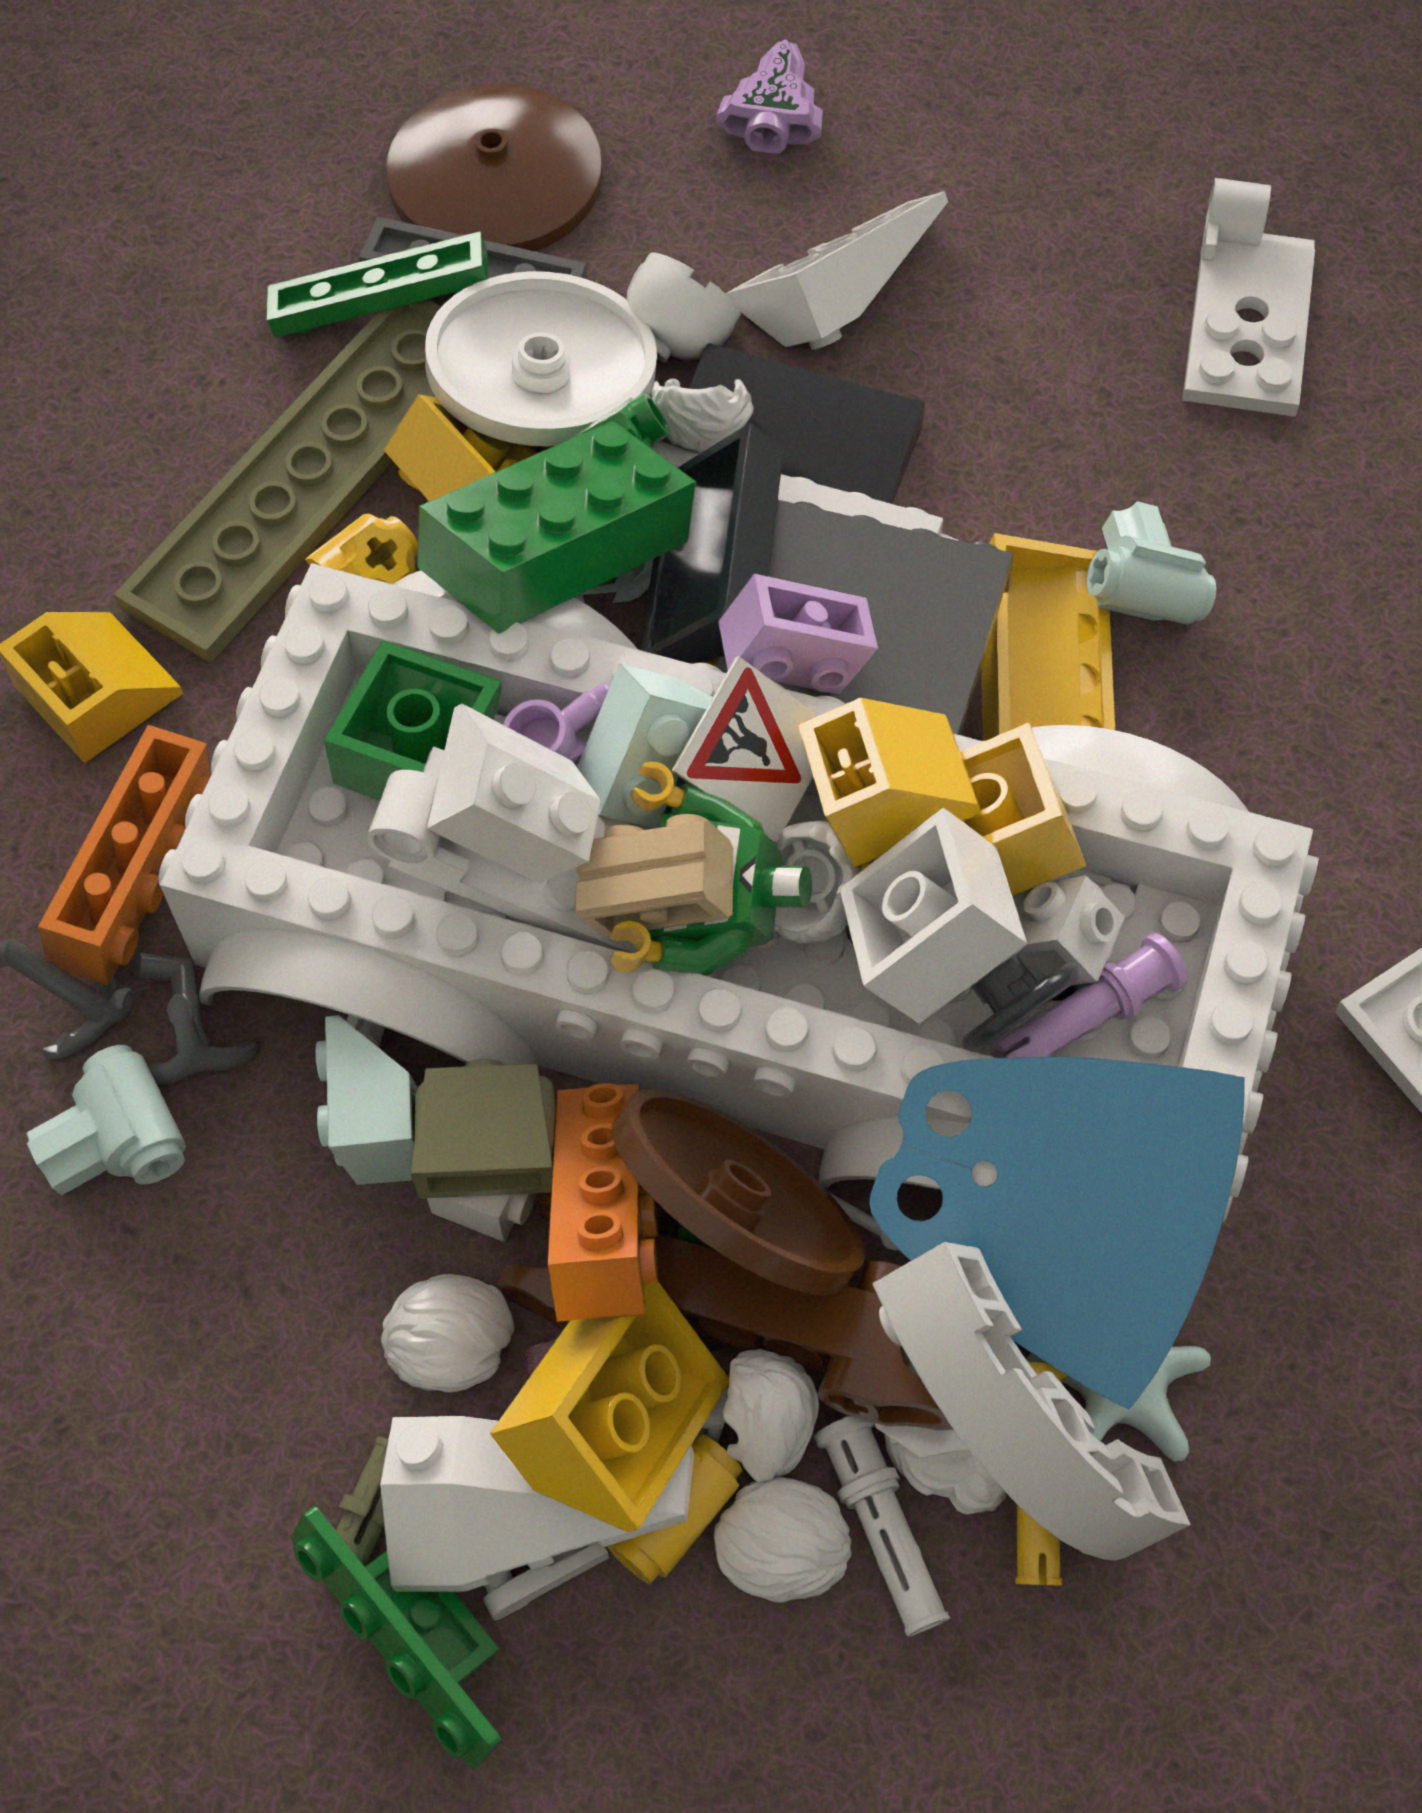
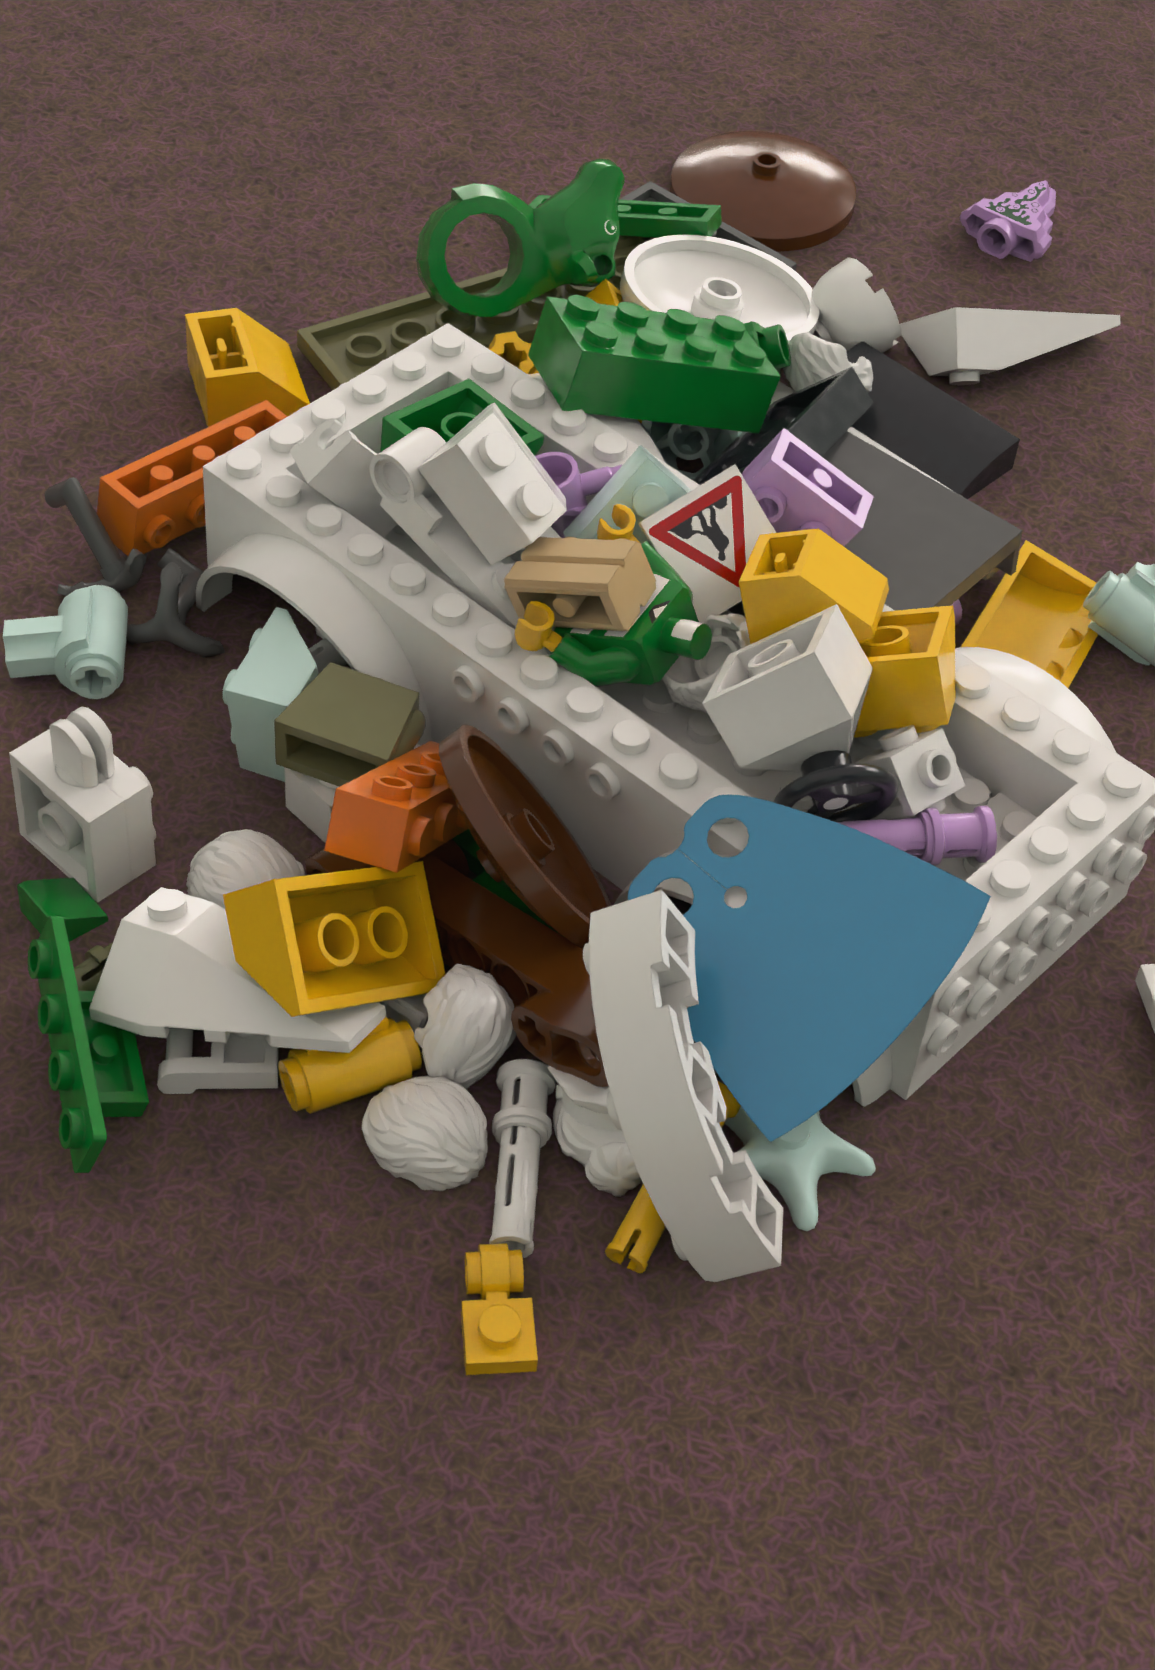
camera: 20 degrees right, 15 degrees down
(247, 1341) = (84, 804): none -> white brick
(278, 1457) = (60, 898): none -> green slope
(326, 836) = (343, 474): none -> white hinge
(351, 375) = (550, 246): none -> green animal
(965, 1722) = (497, 1329): none -> yellow plate

